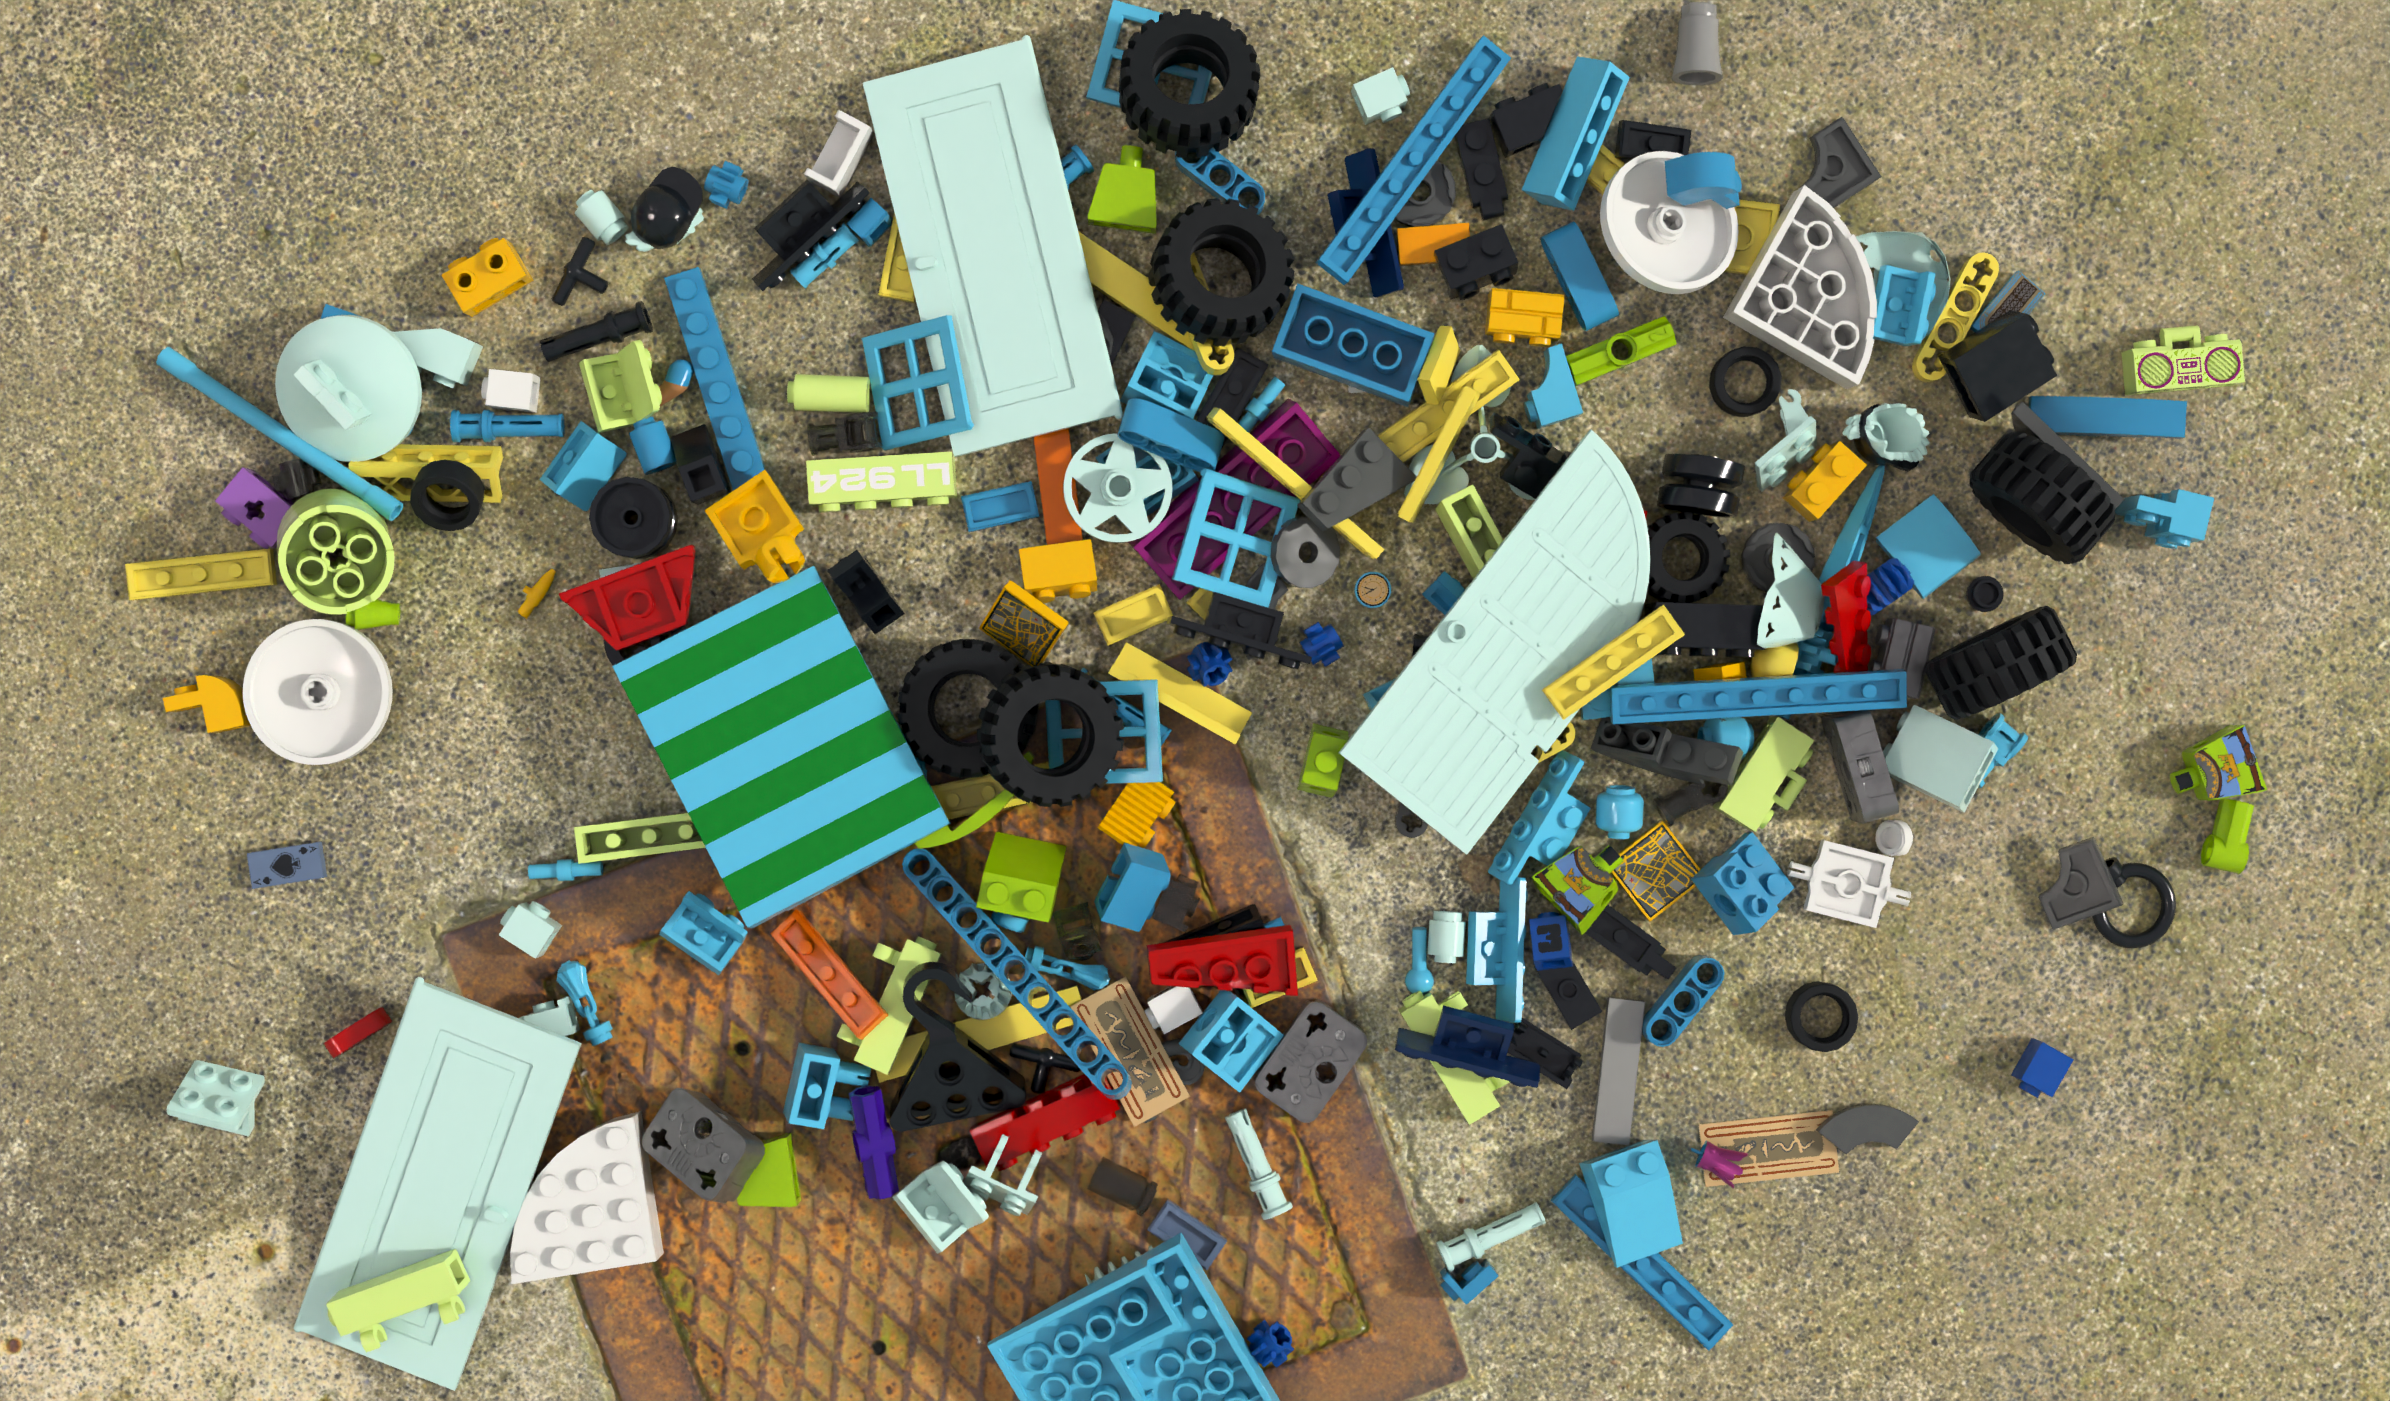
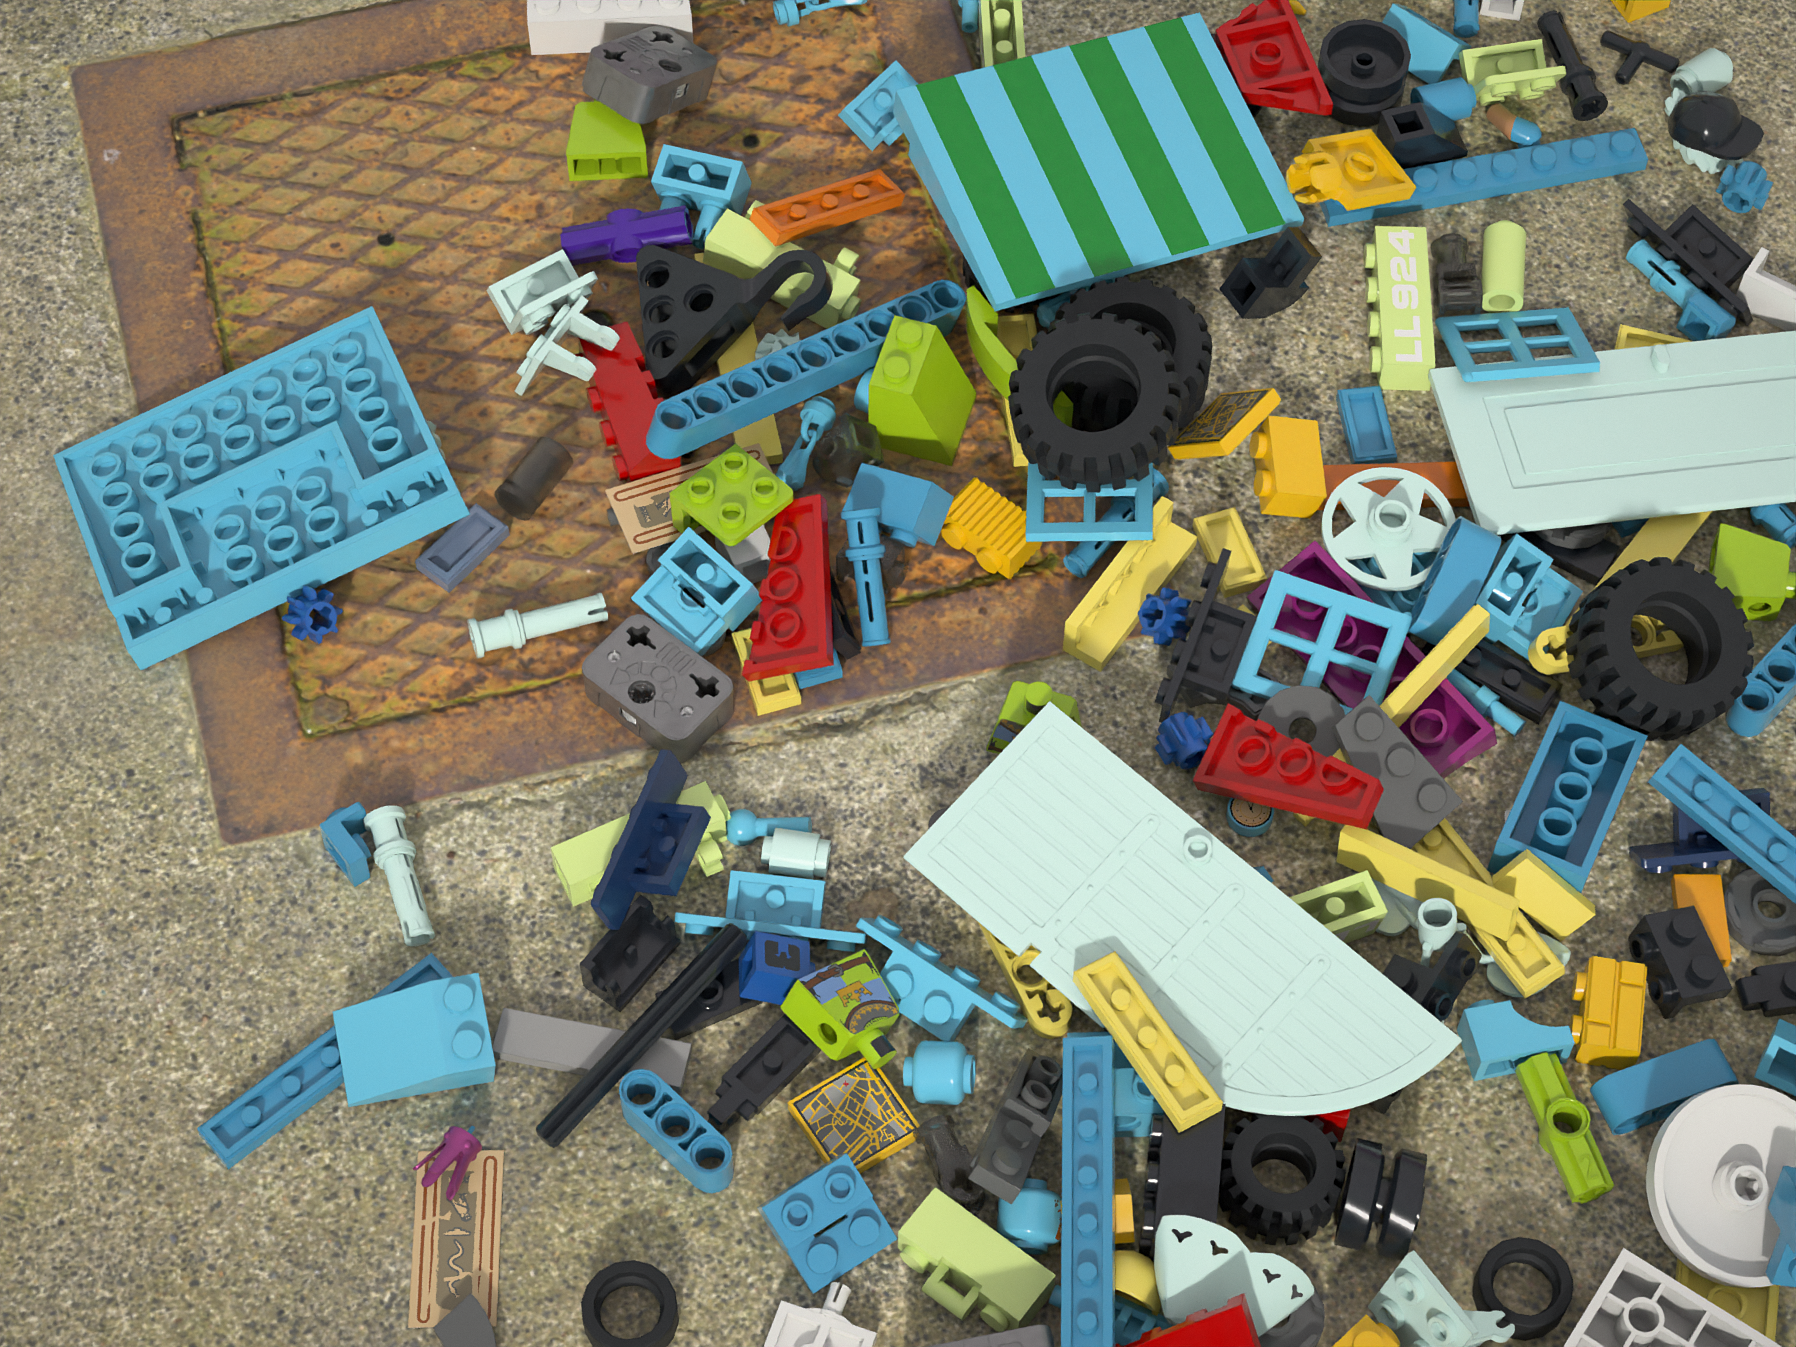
camera: 90 degrees right, 30 degrees down
(1152, 1022) = (729, 497): none -> lime bracket
(1190, 908) = (863, 546): none -> dark azure pin
(1355, 573) = (1272, 770): none -> red wing
(1612, 1034) = (641, 1035): none -> black axle

